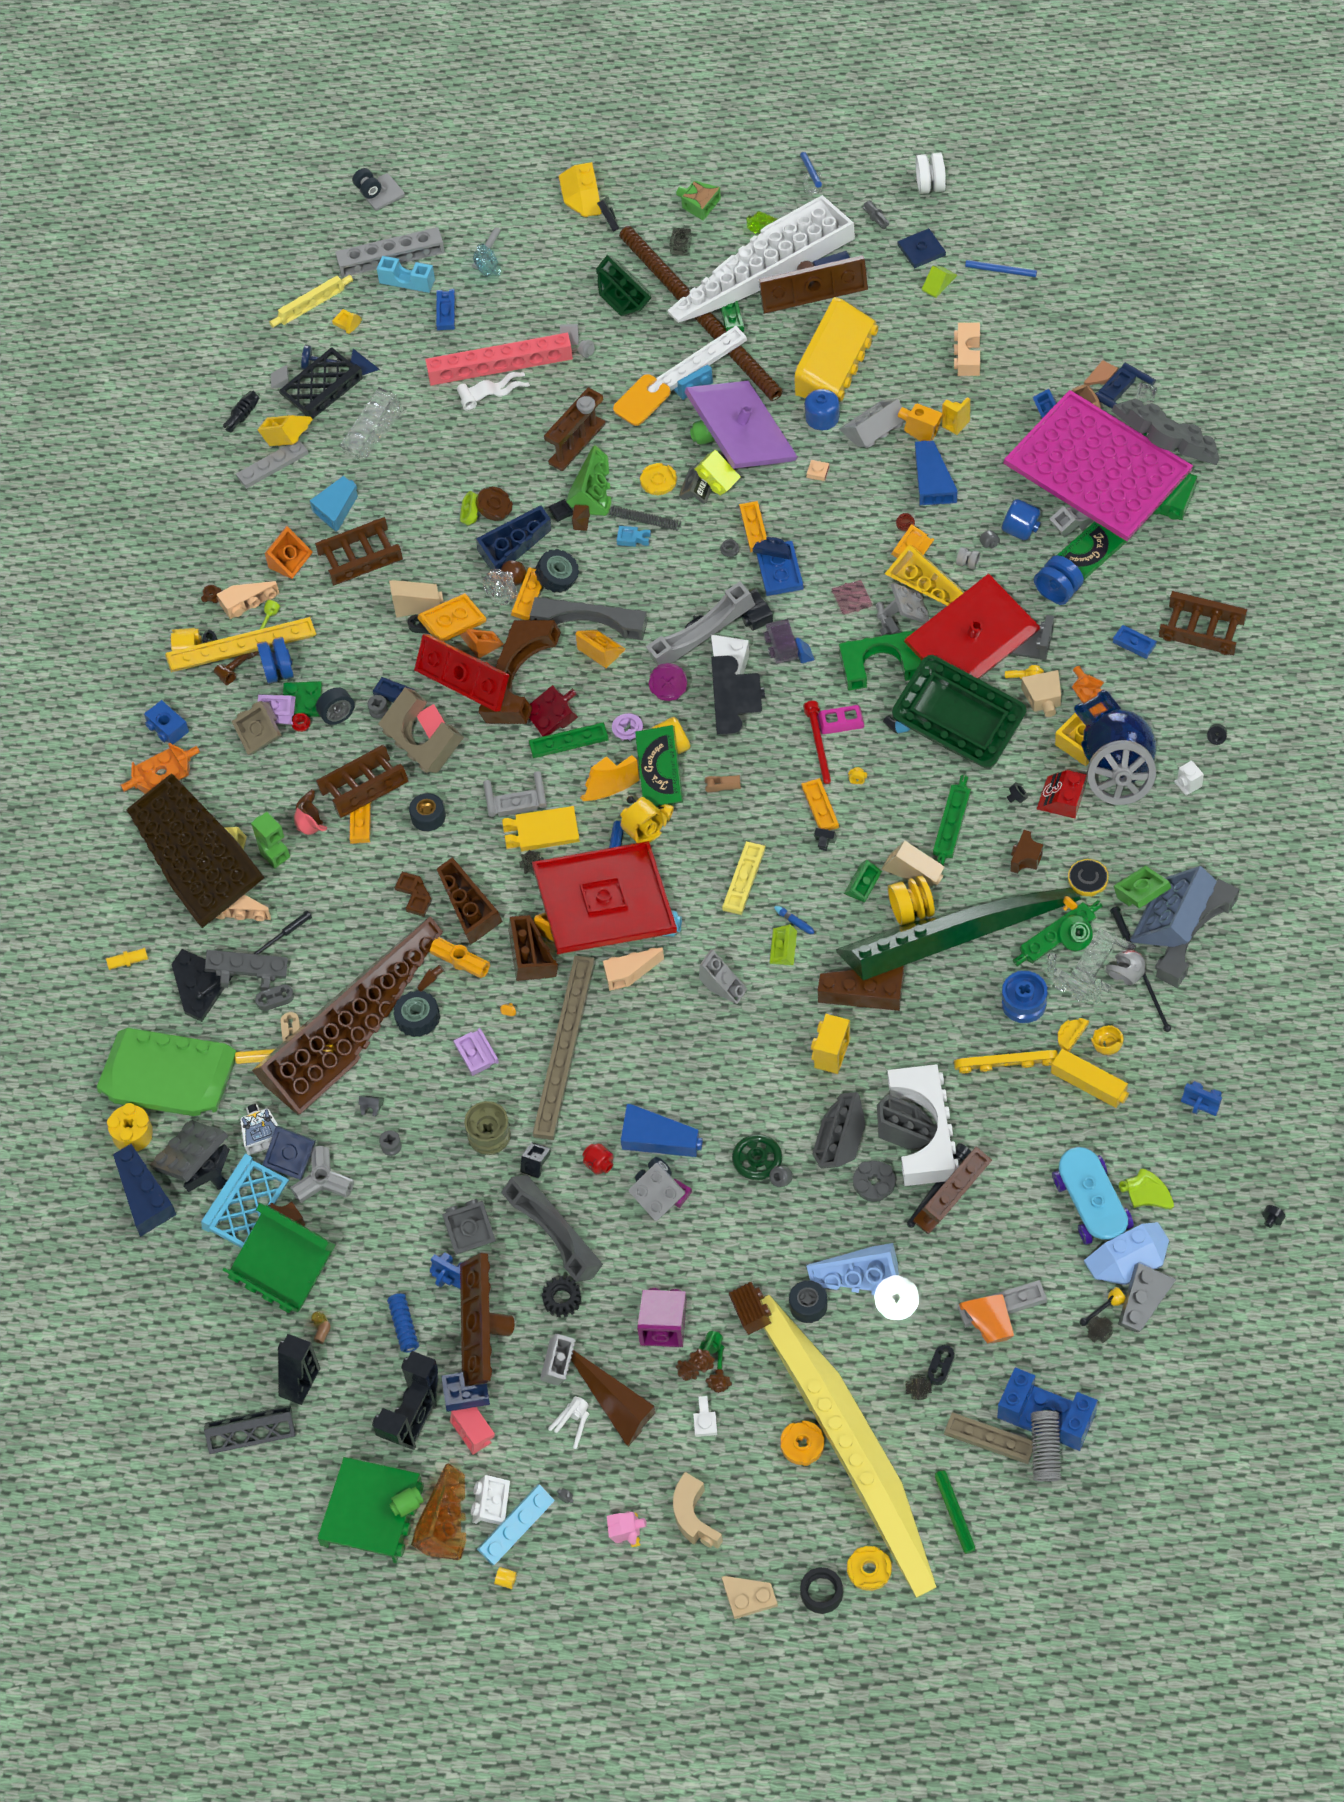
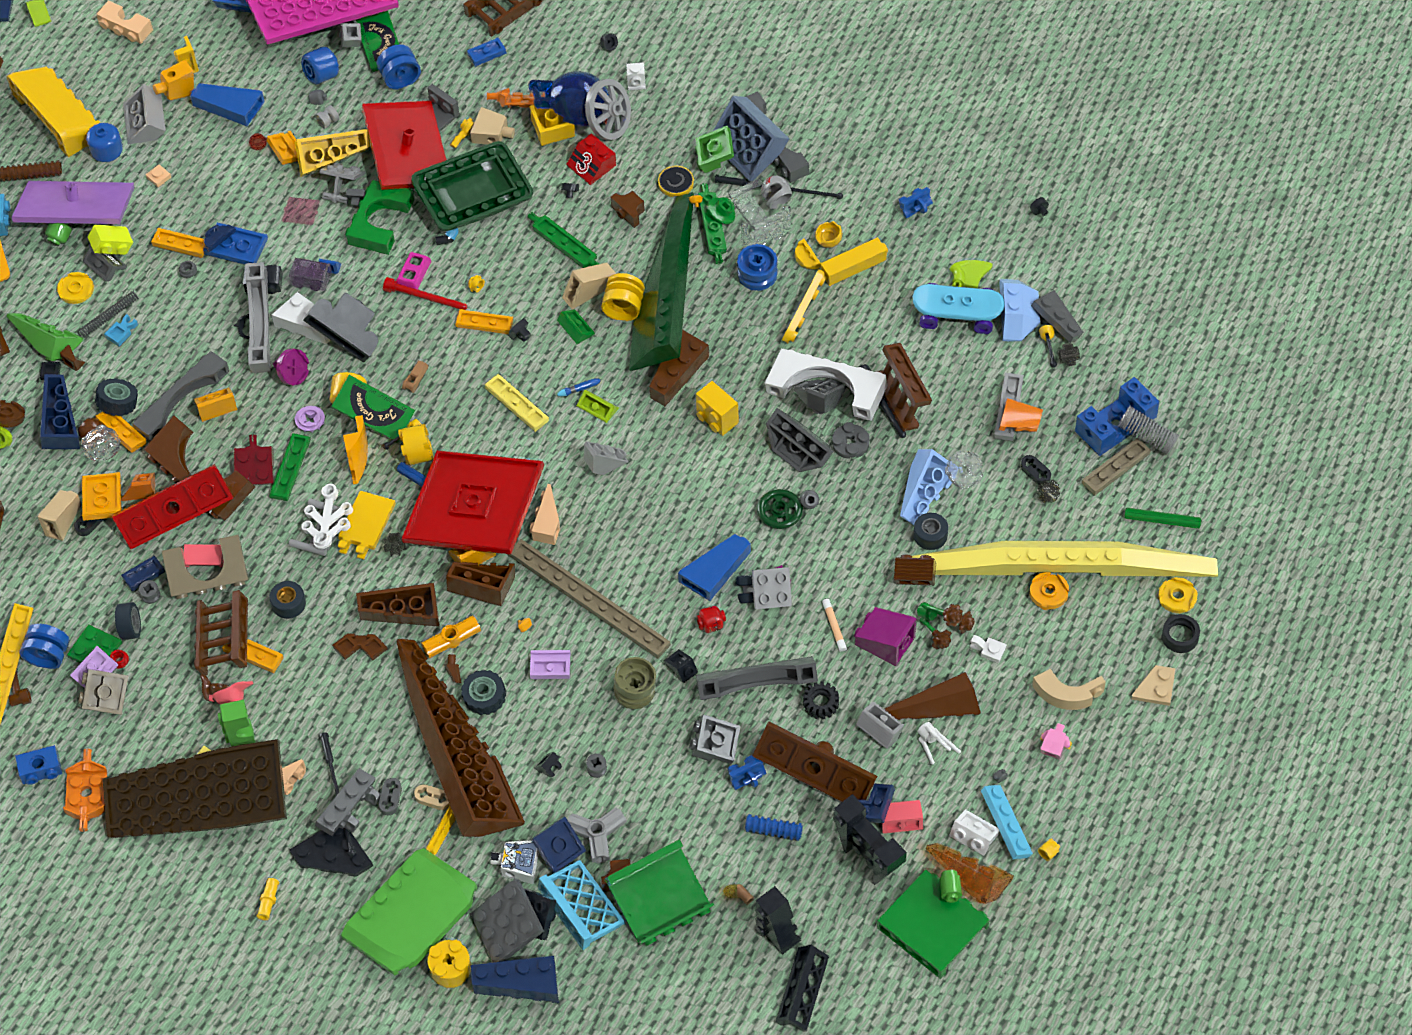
camera: 65 degrees left, 0 degrees up
(501, 802) = (324, 537): none -> white plant
(654, 1268) = (834, 625): none -> light nougat bar

